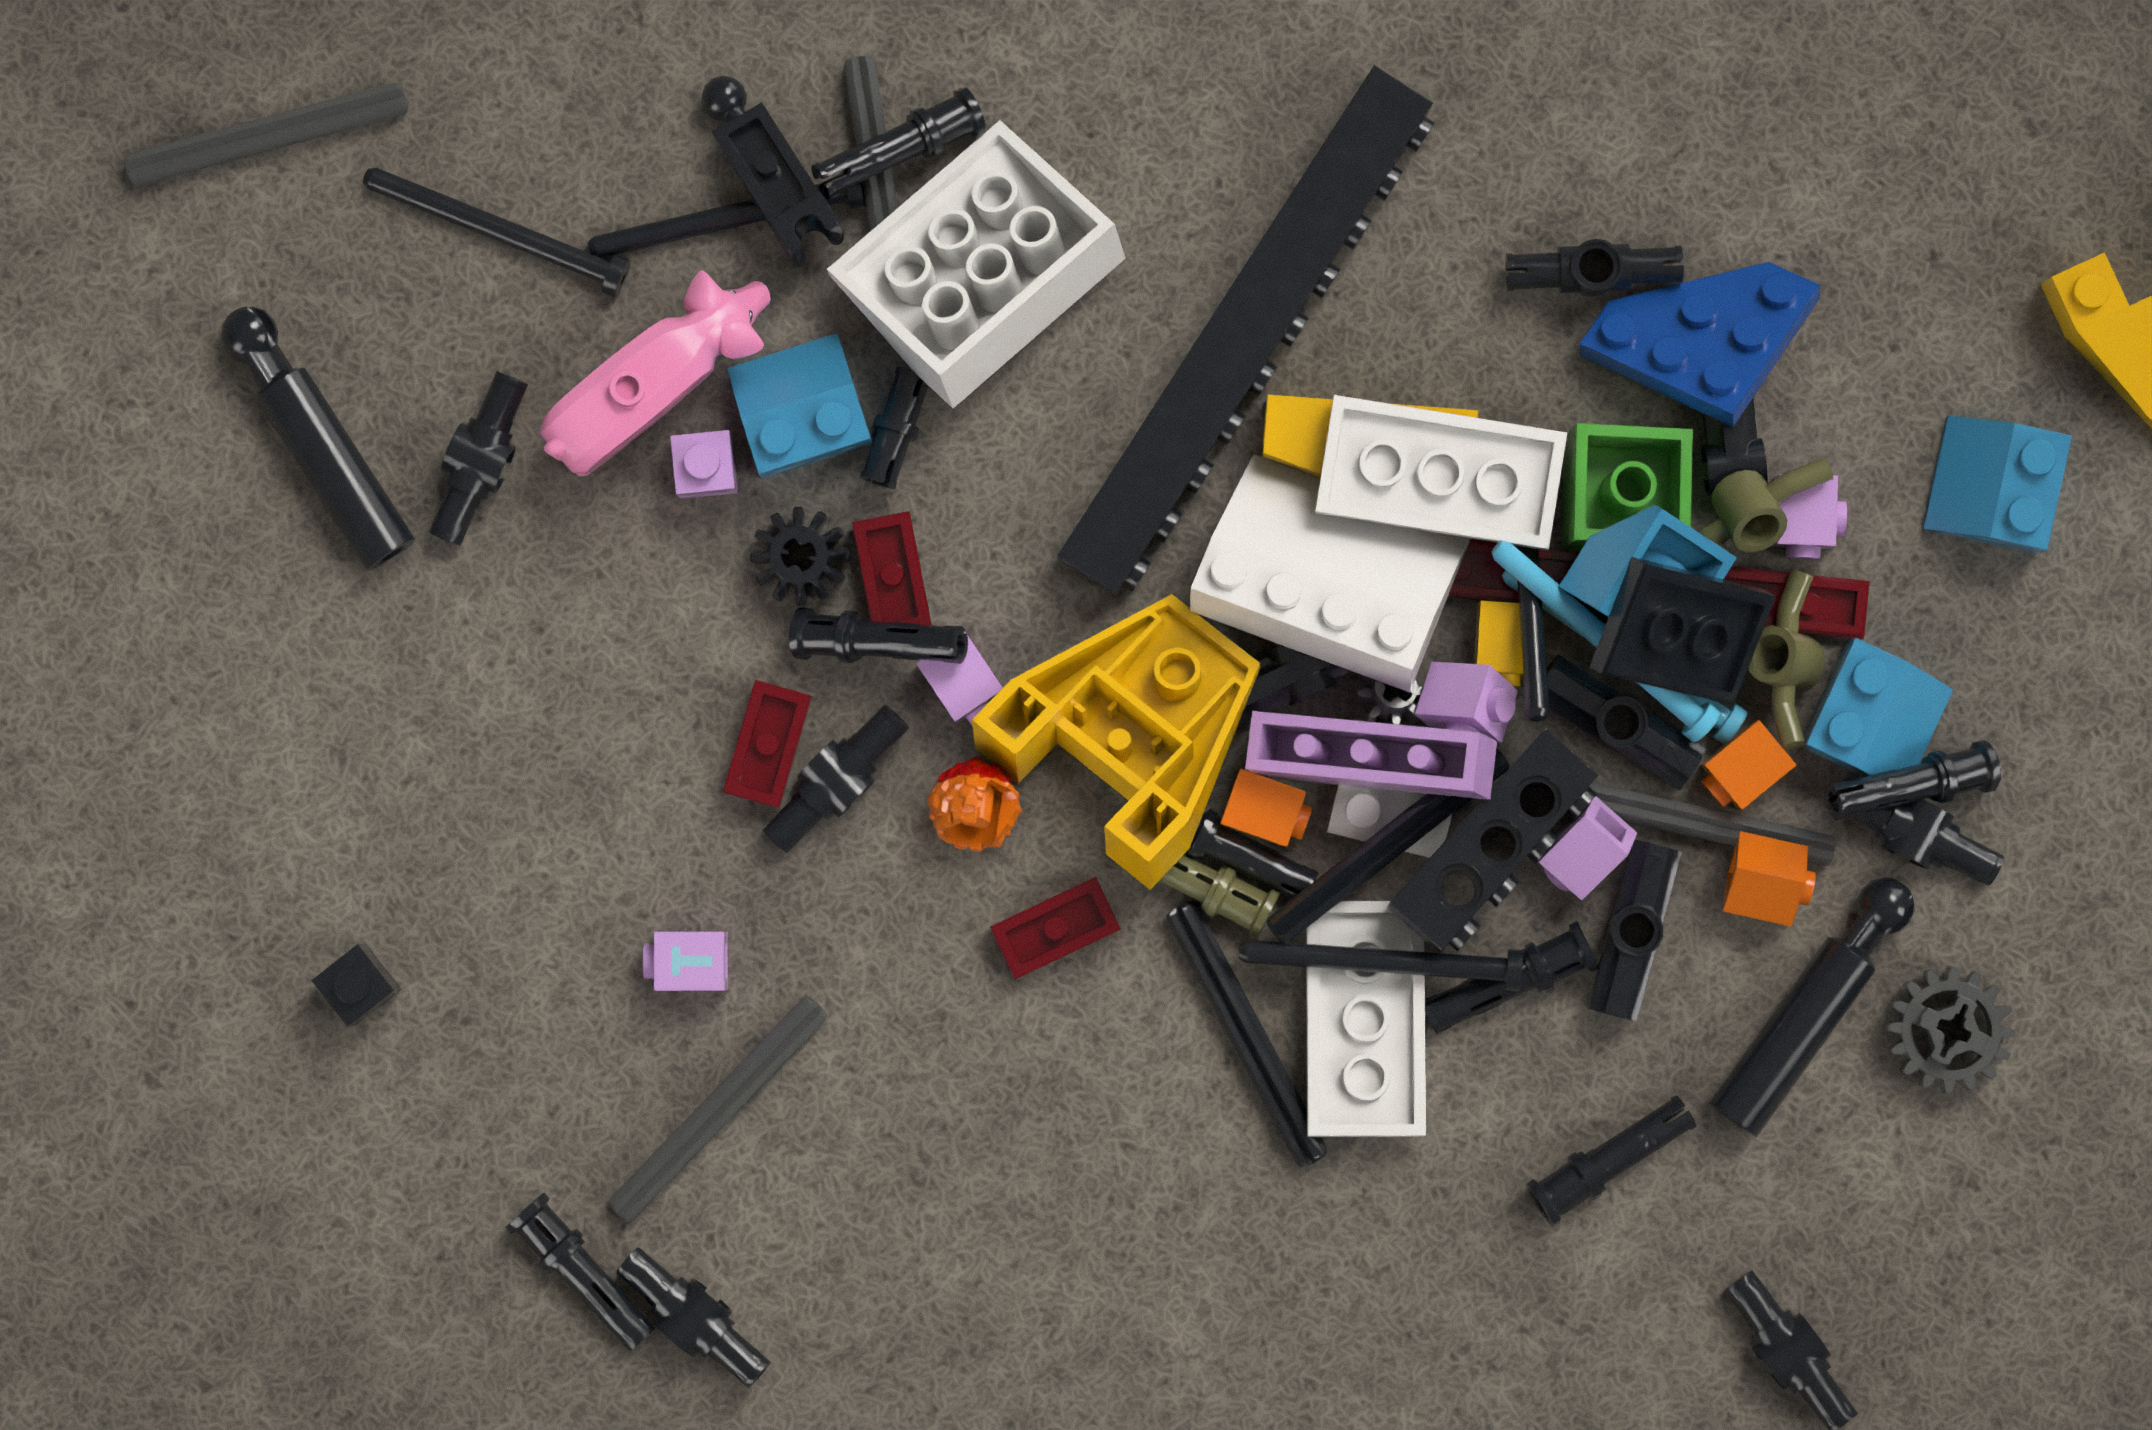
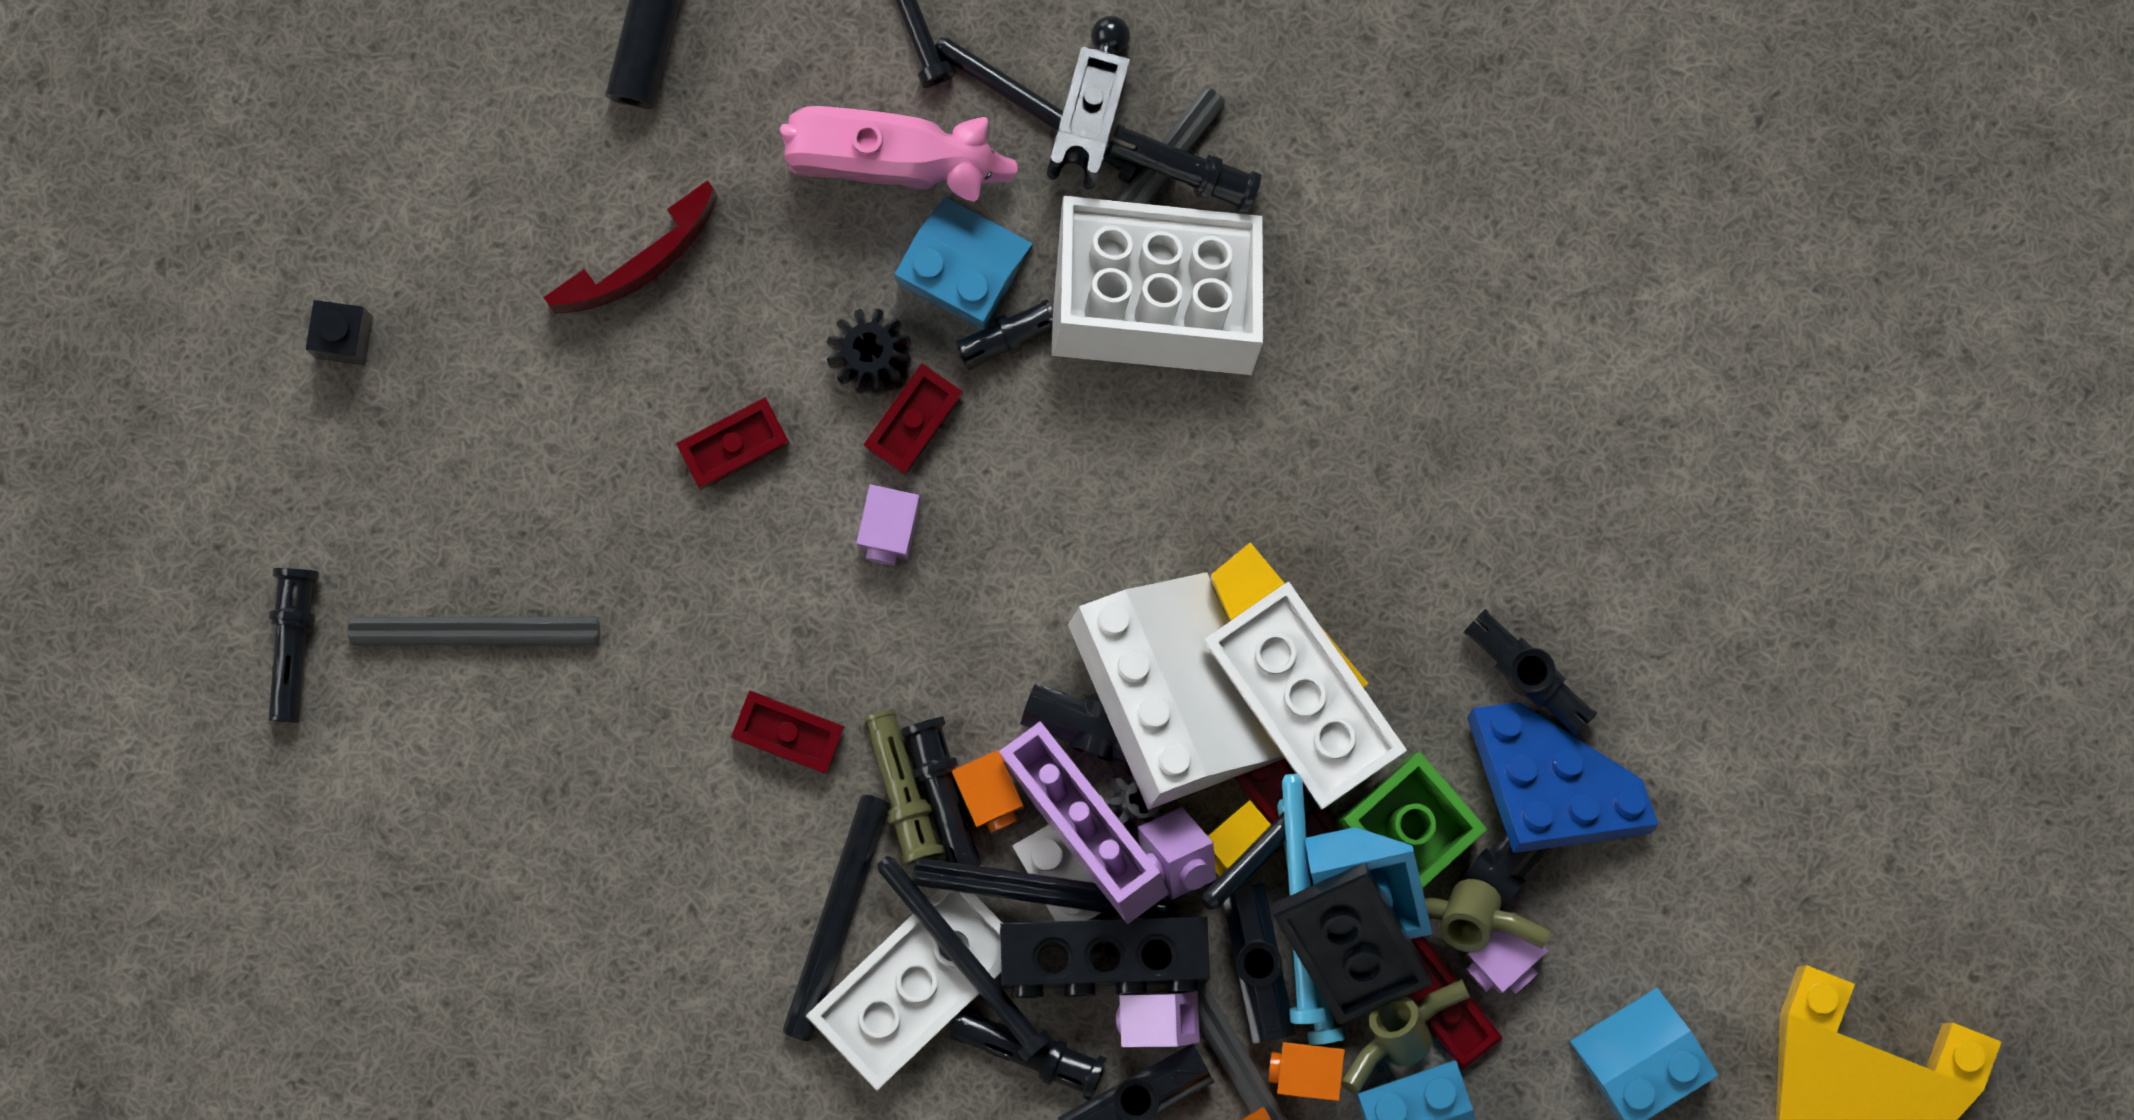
camera: 50 degrees right, 5 degrees down
(477, 458) = (740, 96): black pin -> none
(516, 746) = (582, 293): none -> dark red slope
(687, 961) = (548, 522): lavender brick -> none
(693, 1317) = (326, 740): black pin -> none
(704, 464) = (869, 237): lavender brick -> none
(835, 778) = (751, 505): black pin -> none
(853, 637) = (849, 431): black pin -> none
(974, 805) = (815, 606): orange piece -> none
(1144, 712) = (976, 656): yellow wedge -> none
(1245, 332) = (1278, 493): black brick -> none

